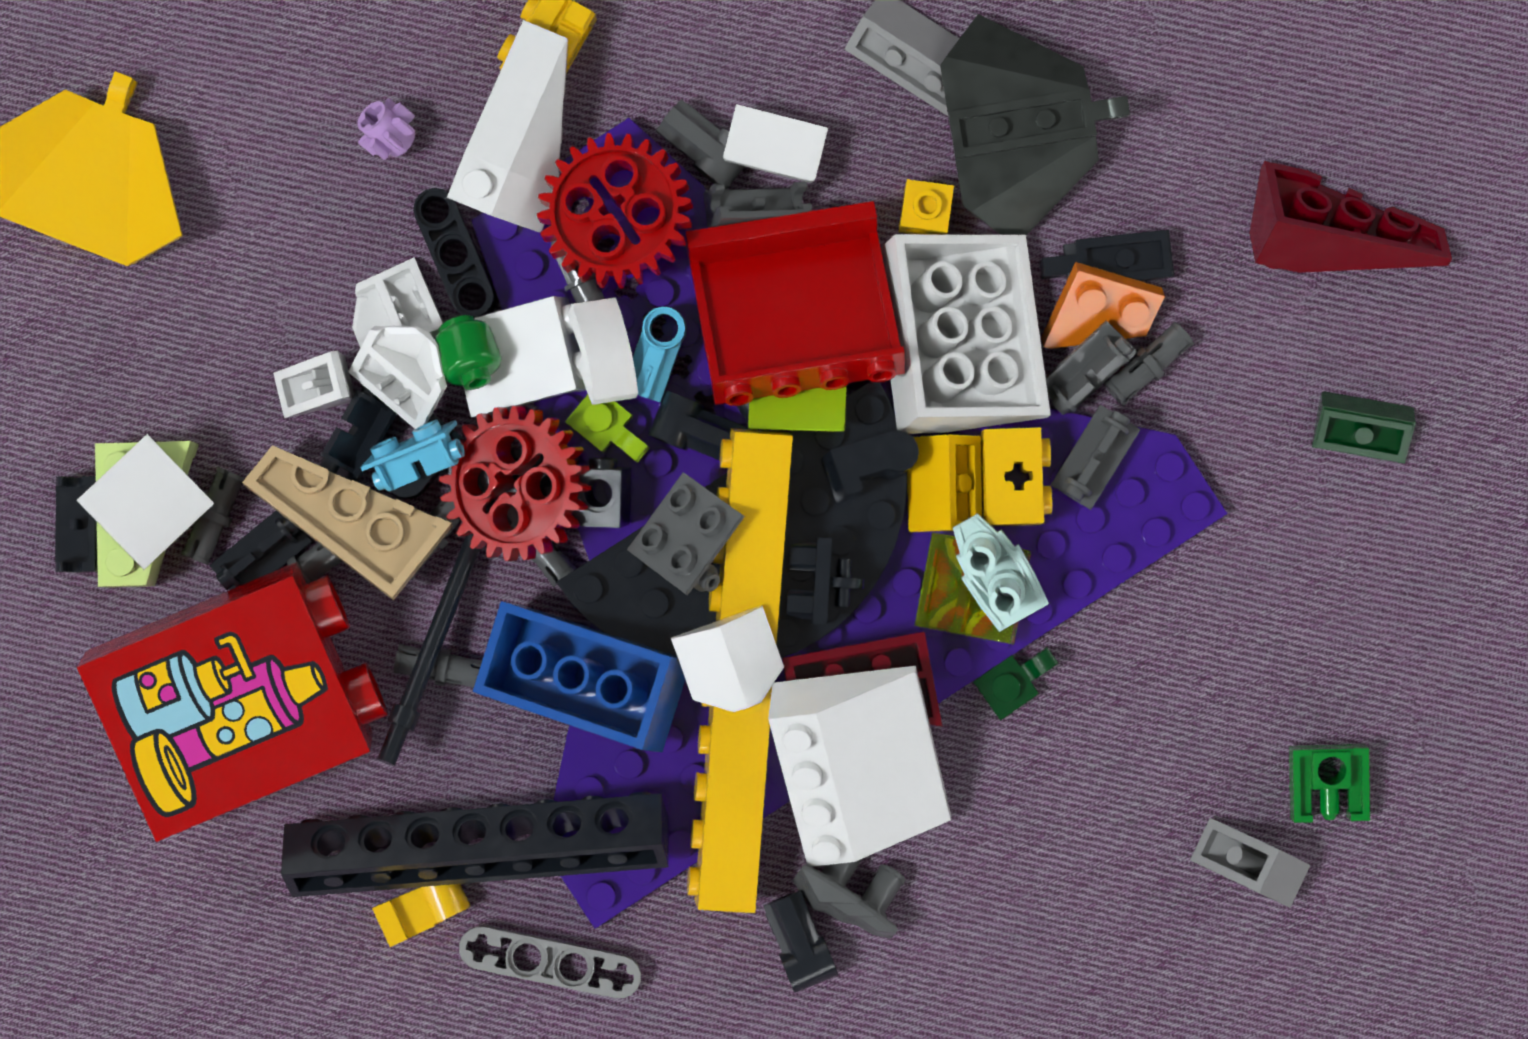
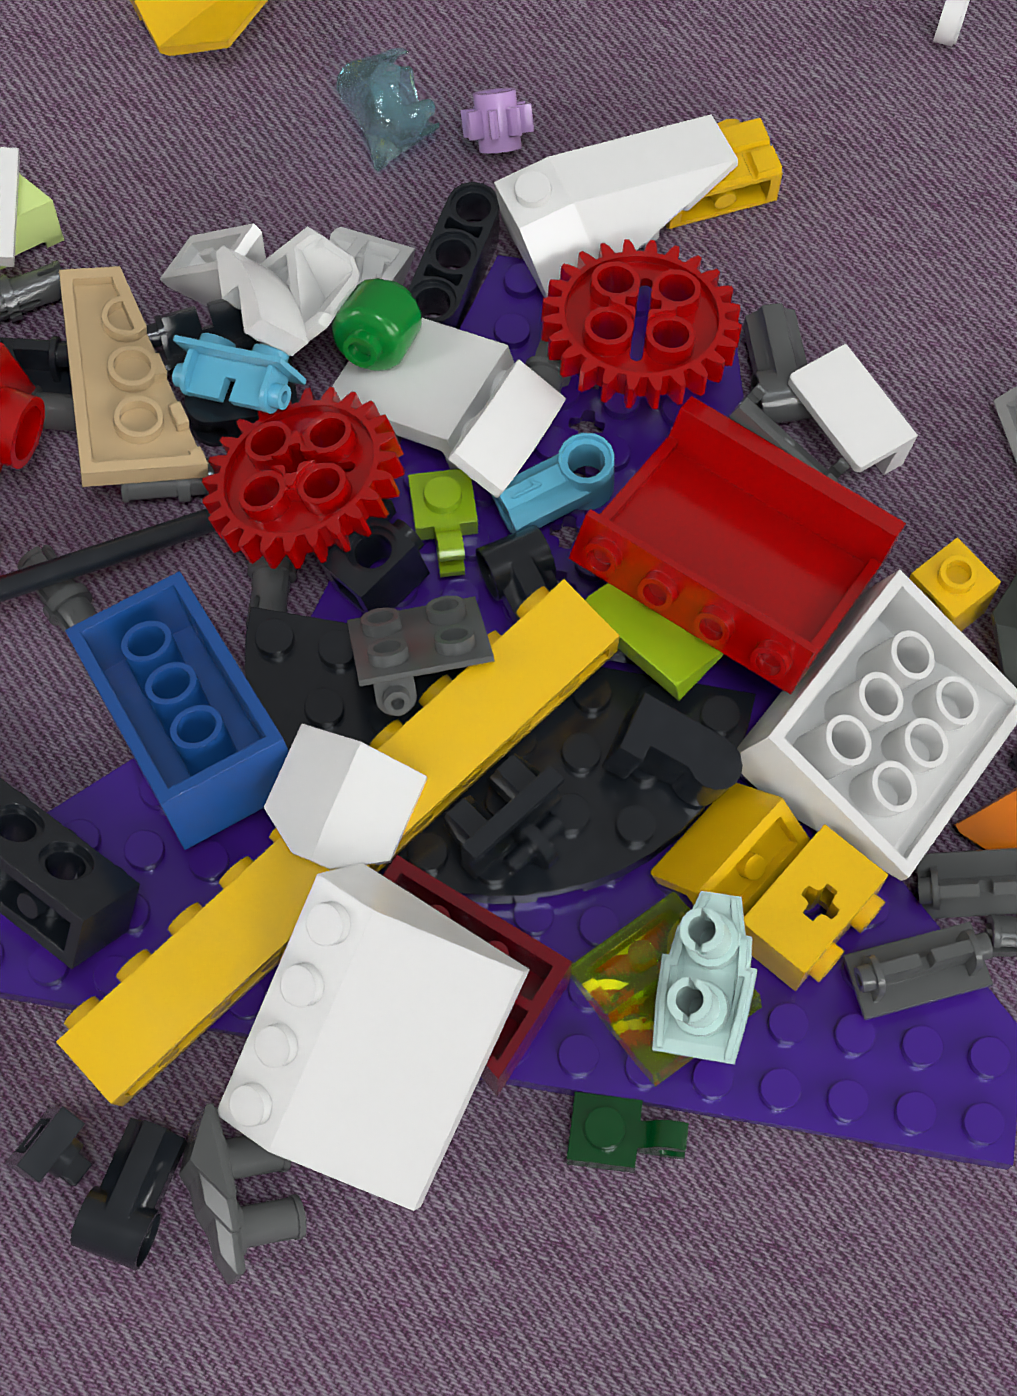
camera: 45 degrees right, 20 degrees down
(310, 179) = (386, 105): none -> clear light blue hair
(384, 395) = (264, 299): none -> white slope
(739, 961) = (52, 1149): none -> black hinge

